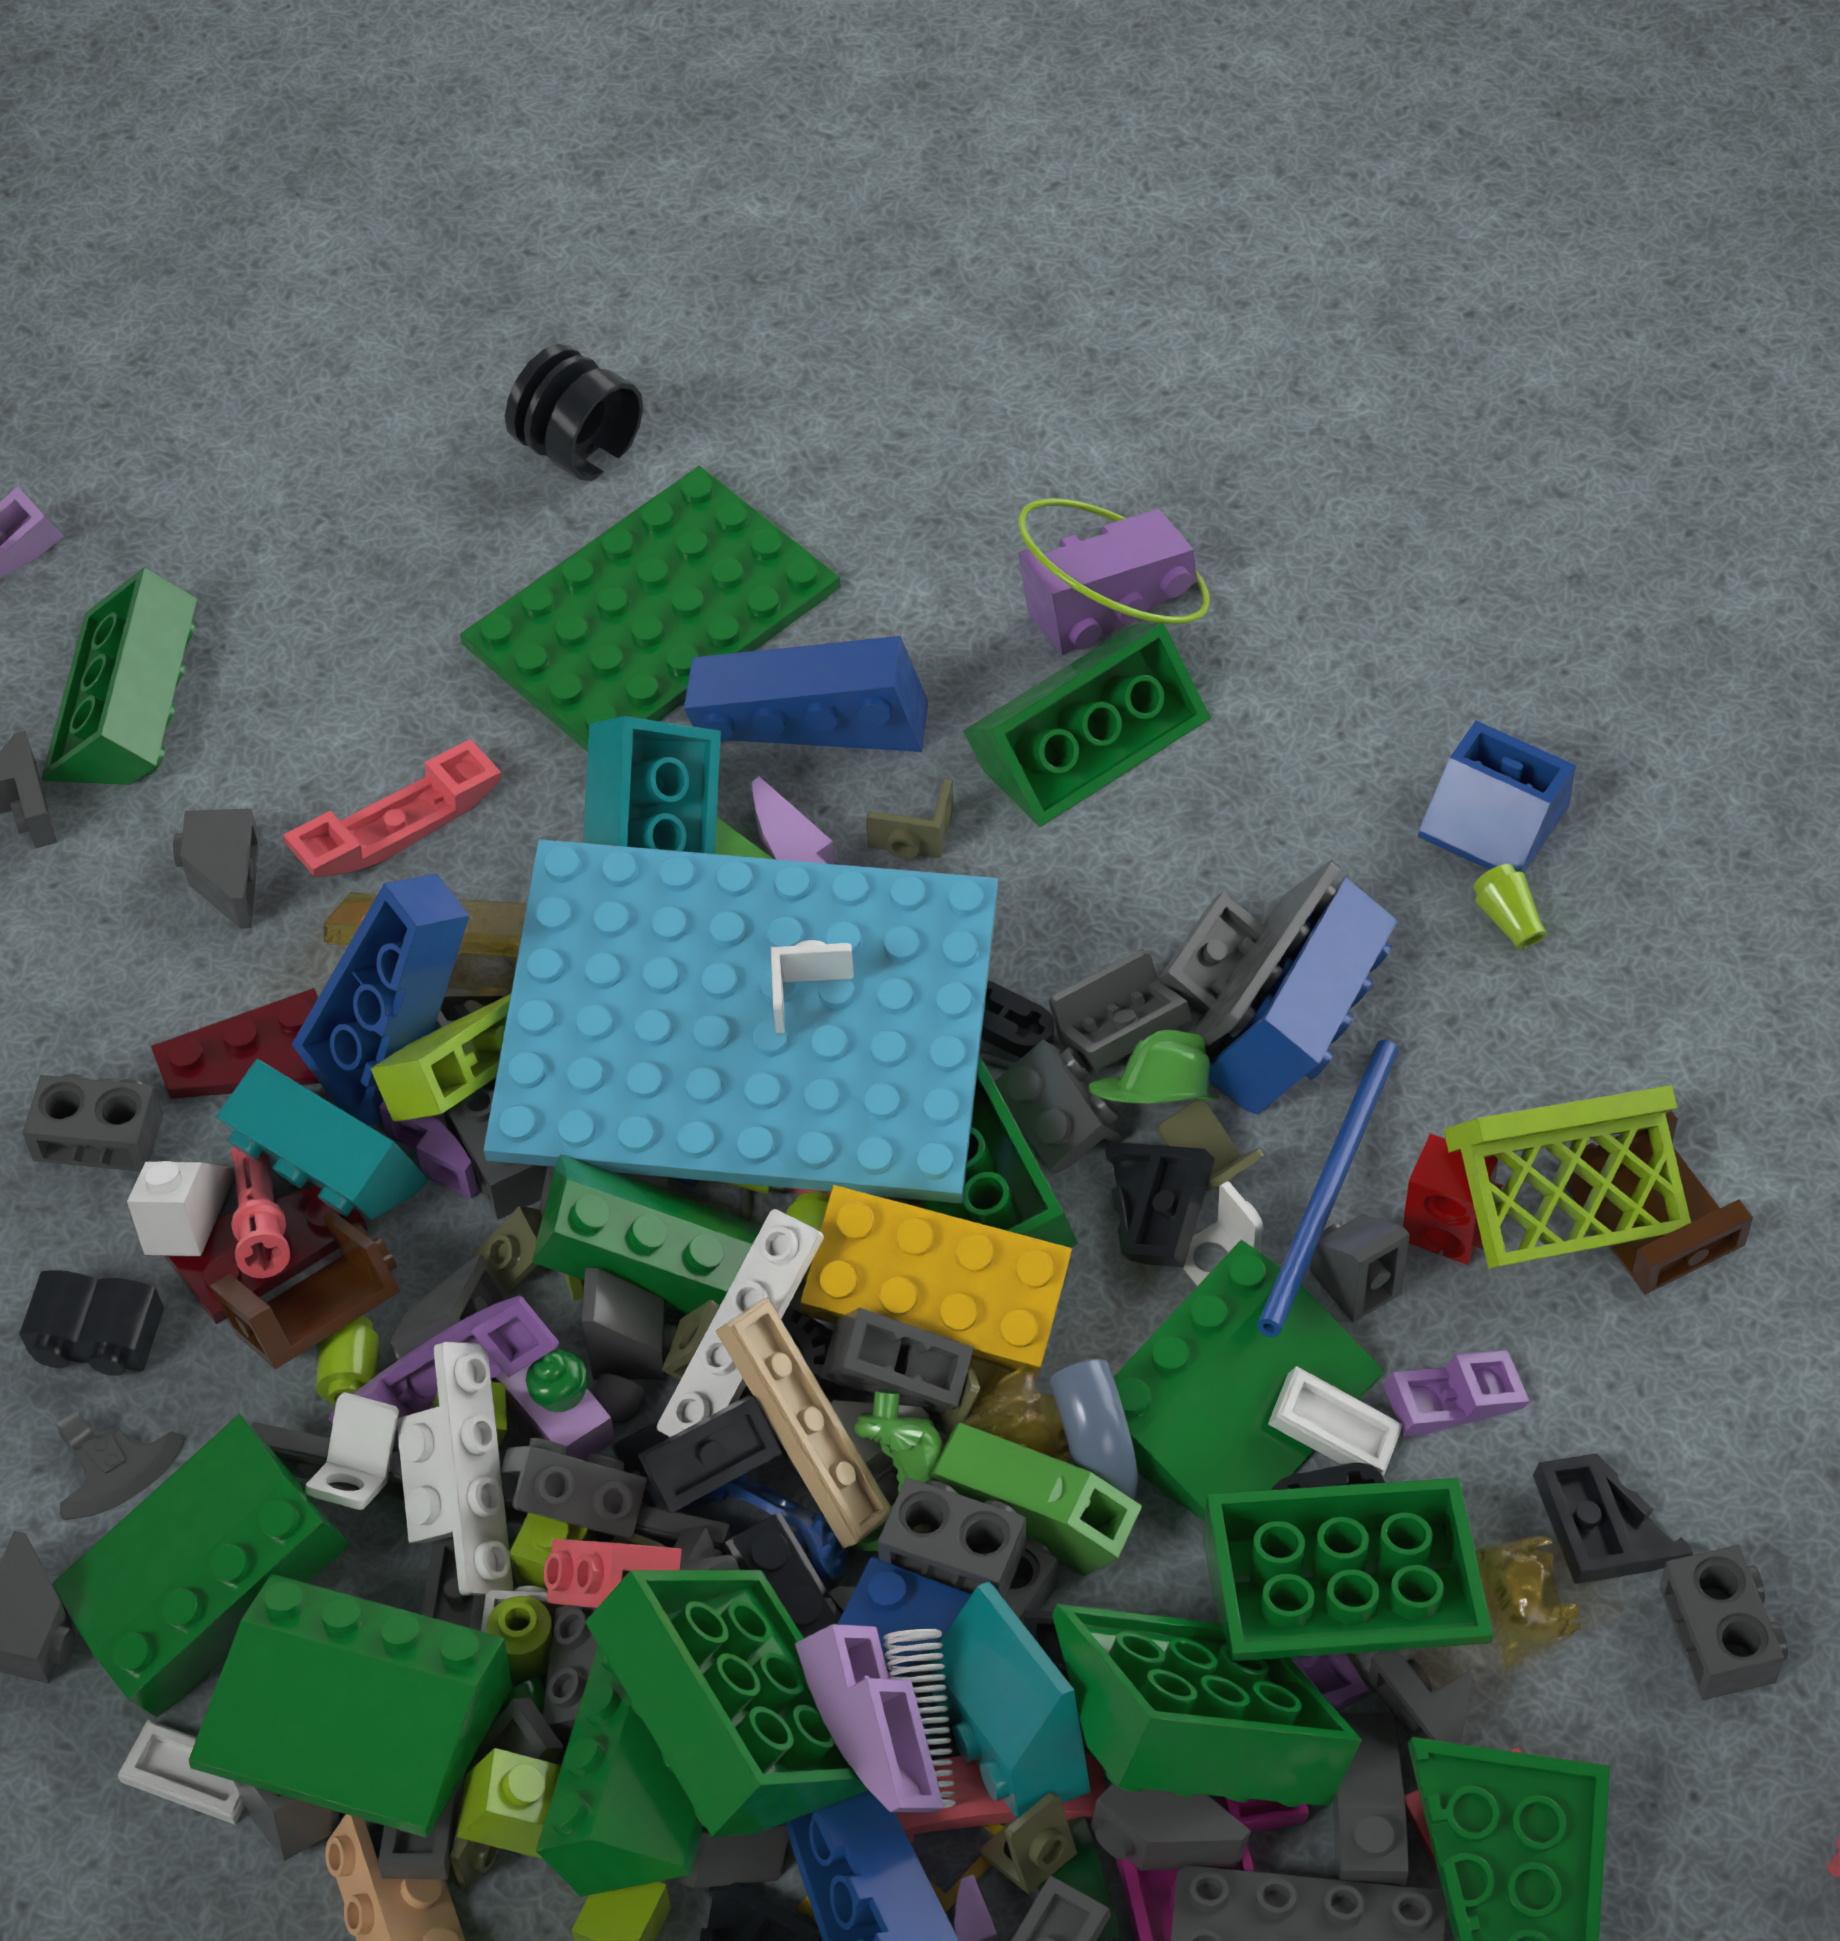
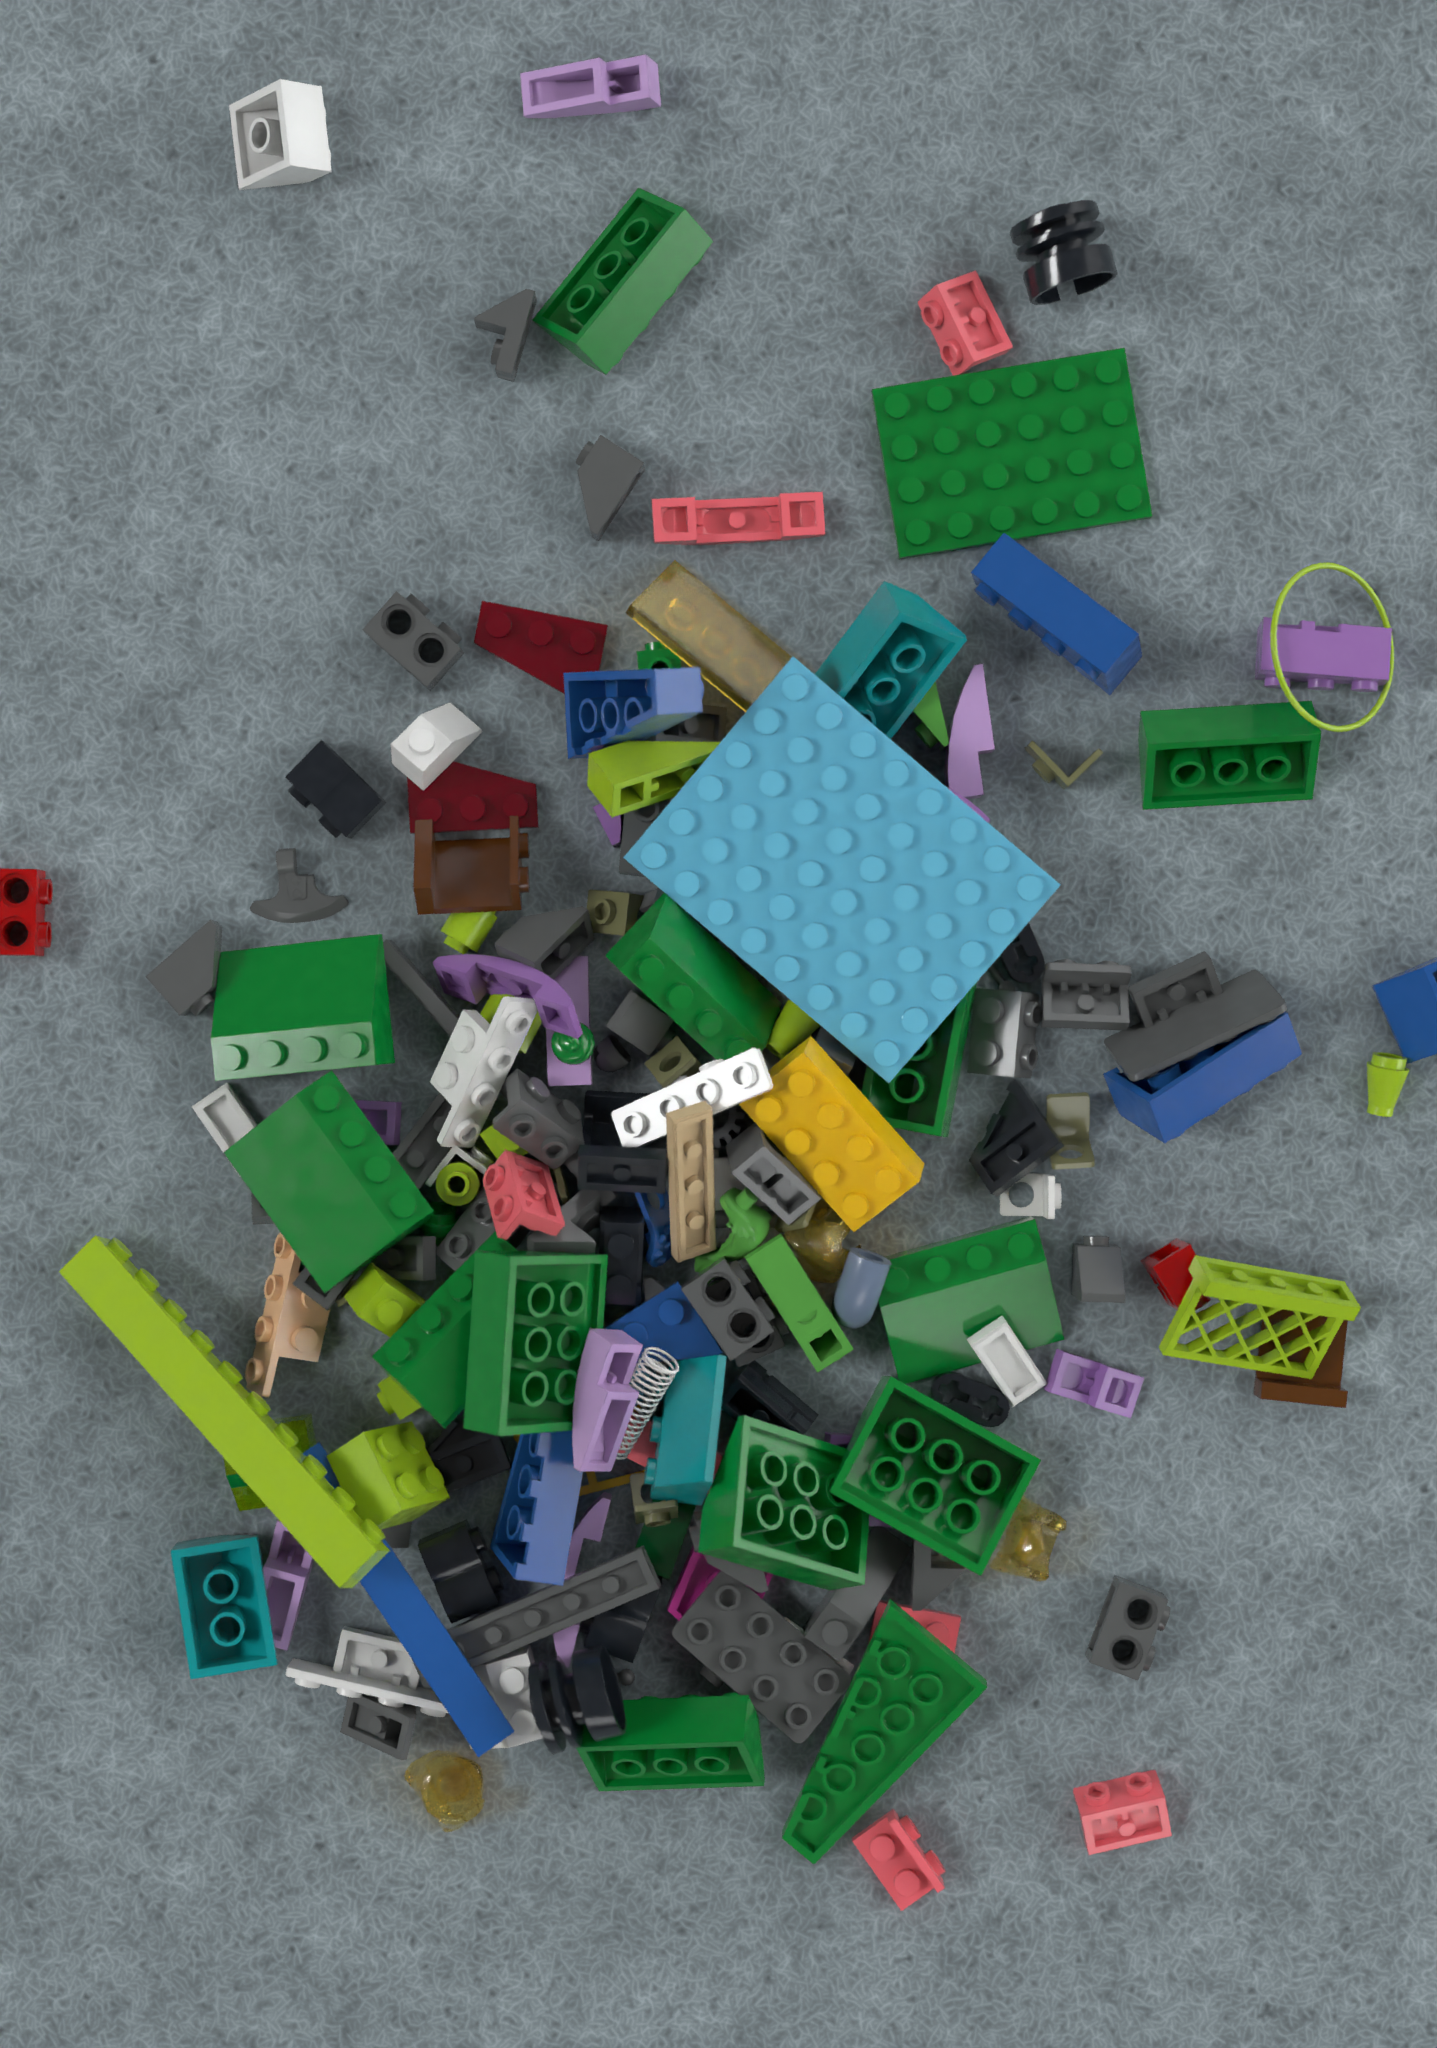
camera: 30 degrees right, 35 degrees up
(258, 1219) = (468, 797): coral pin -> none
(318, 1144) = (535, 765): teal slope -> none
(357, 1451) = (433, 1011): white bracket -> none
(514, 533) = (964, 323): none -> coral bracket
(807, 962) = (893, 875): white bracket -> none
(1161, 1070) = (1068, 1069): bright green piece -> none
(1327, 1190) = (1116, 1213): blue piece -> none
(1601, 1522) = (1111, 1521): black wing -> none

